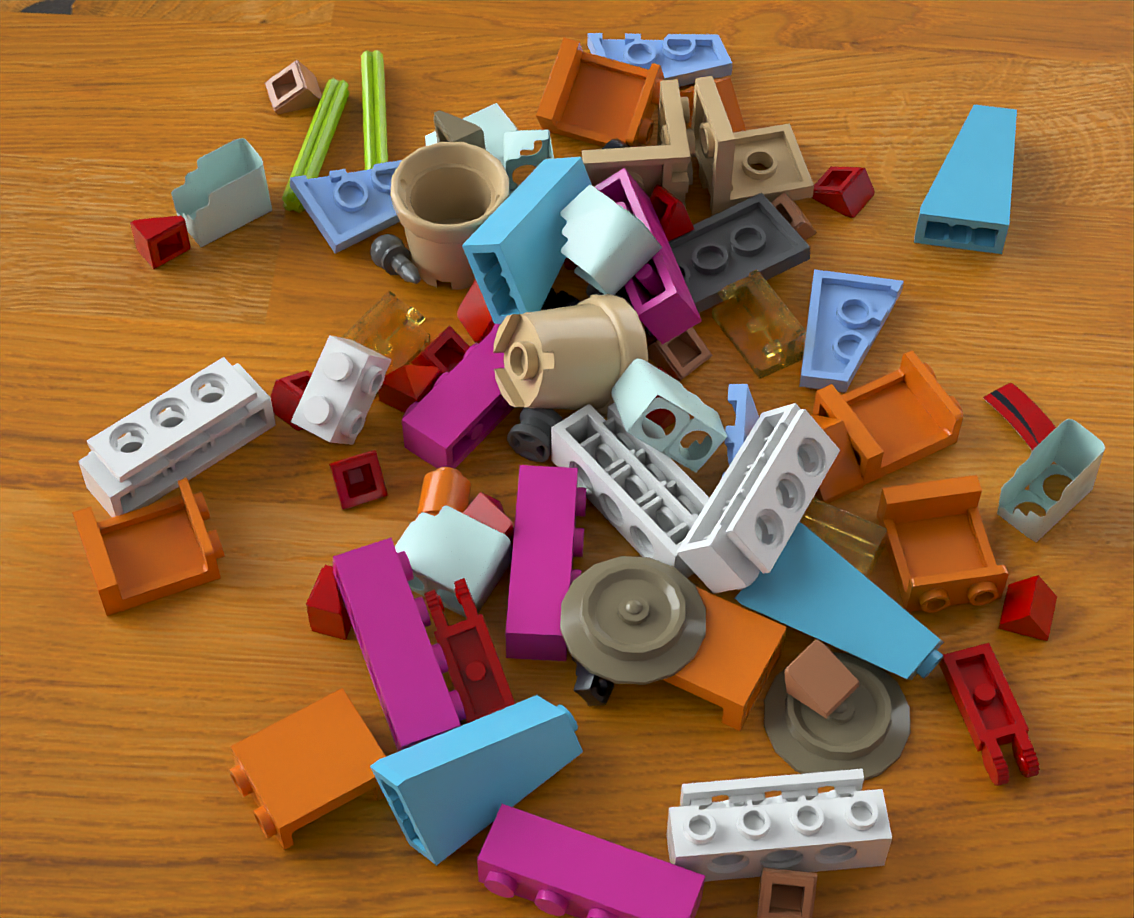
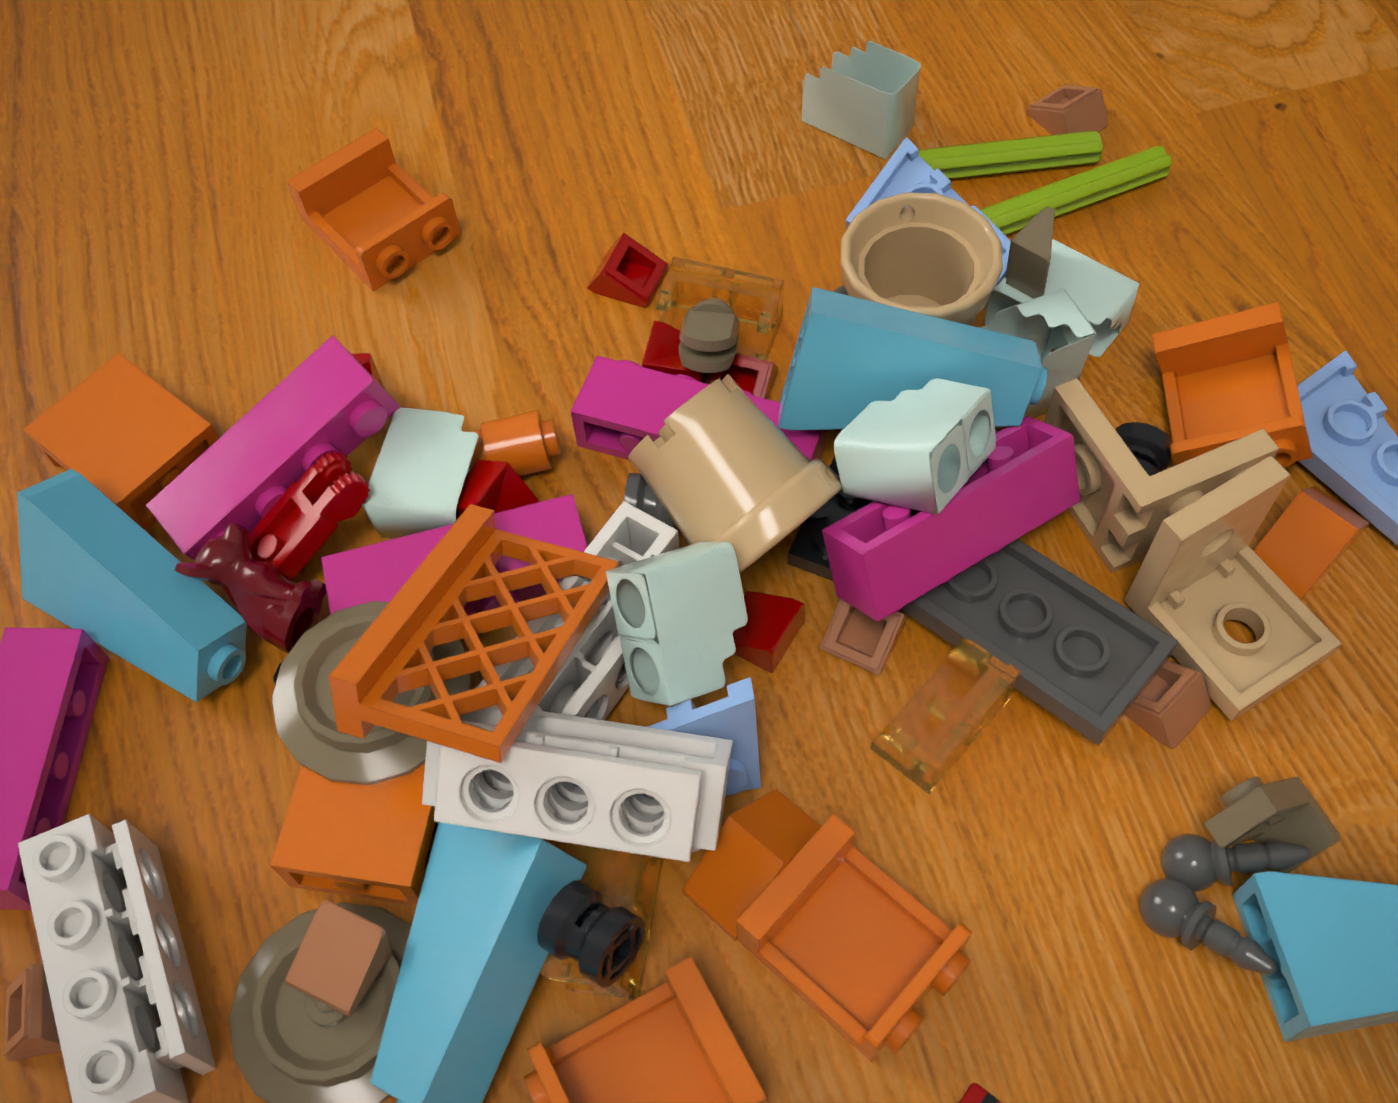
camera: 75 degrees right, 5 degrees up
(160, 238) = (777, 75): red slope -> none
(180, 441) = (516, 179): white brick -> none
(341, 390) = (613, 283): white brick -> none
(358, 479) = (522, 355): red slope -> none
(416, 348) = (709, 337): none -> dark tan arm
(532, 673) = (263, 594): none -> dark red animal
(625, 538) = (430, 612): none -> orange fence
(670, 213) = (1065, 538): red slope -> none
(843, 324) = (1001, 826): light blue wing -> none
(844, 190) = (1270, 752): red slope -> none
(860, 523) = (591, 933): none -> black wheel
(887, 197) = (1273, 813): none -> dark tan bracket
(892, 248) = (1202, 862): none -> dark grey bar
(917, 268) = (1174, 911): none -> dark grey bar

